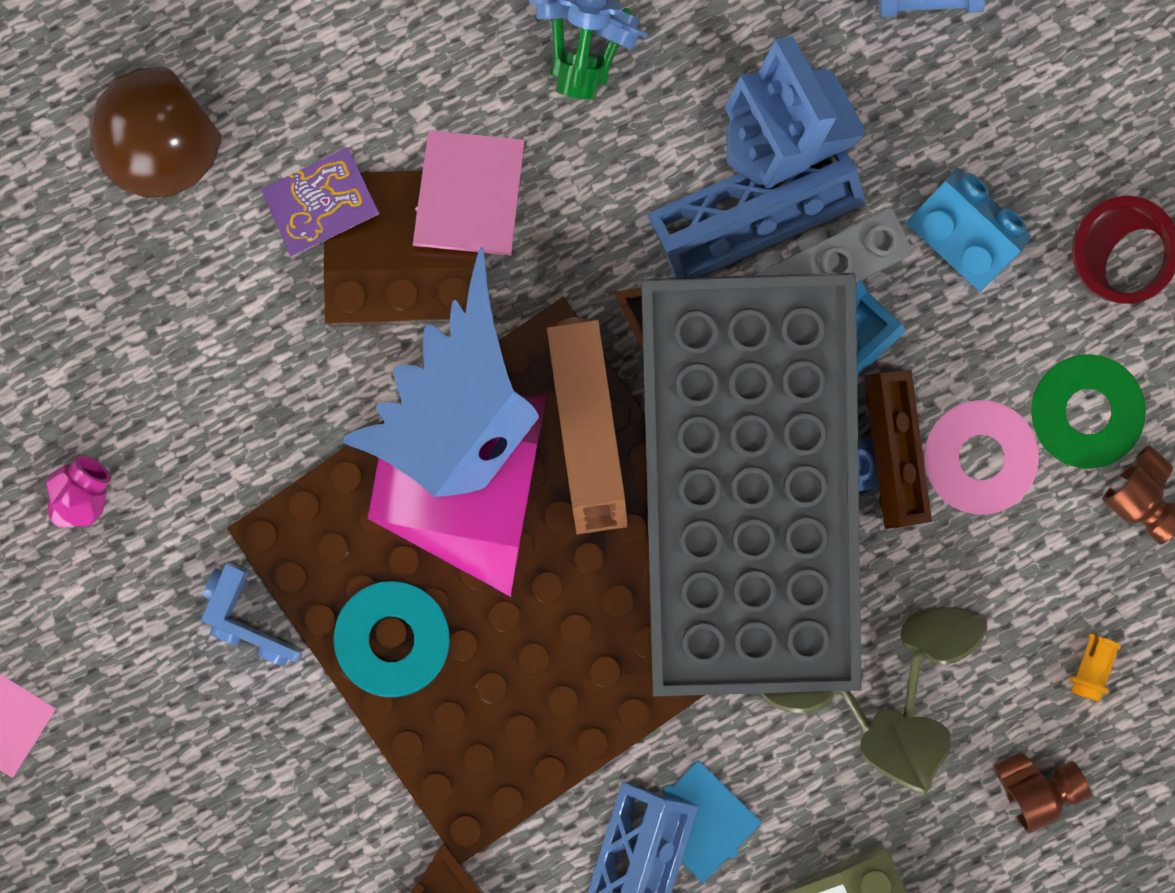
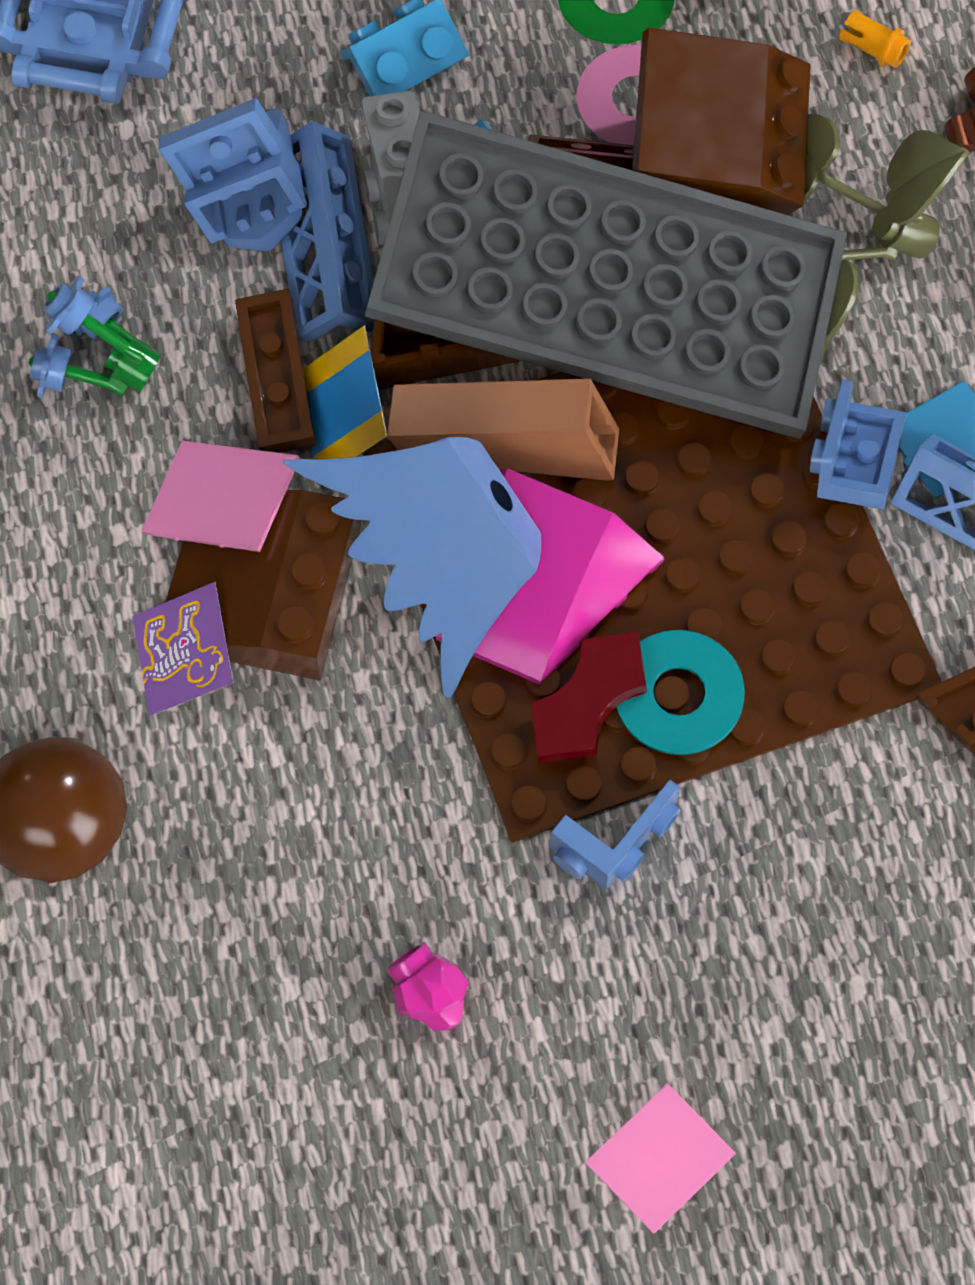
camera: 70 degrees left, 20 degrees down
(337, 553) = (572, 717): none -> dark red tile
(581, 275) = (345, 399): none -> sticker
(605, 205) = (275, 372): none -> reddish brown plate
(654, 747) = (859, 450): none -> medium blue bracket
(948, 549) = (723, 117): none -> reddish brown slope

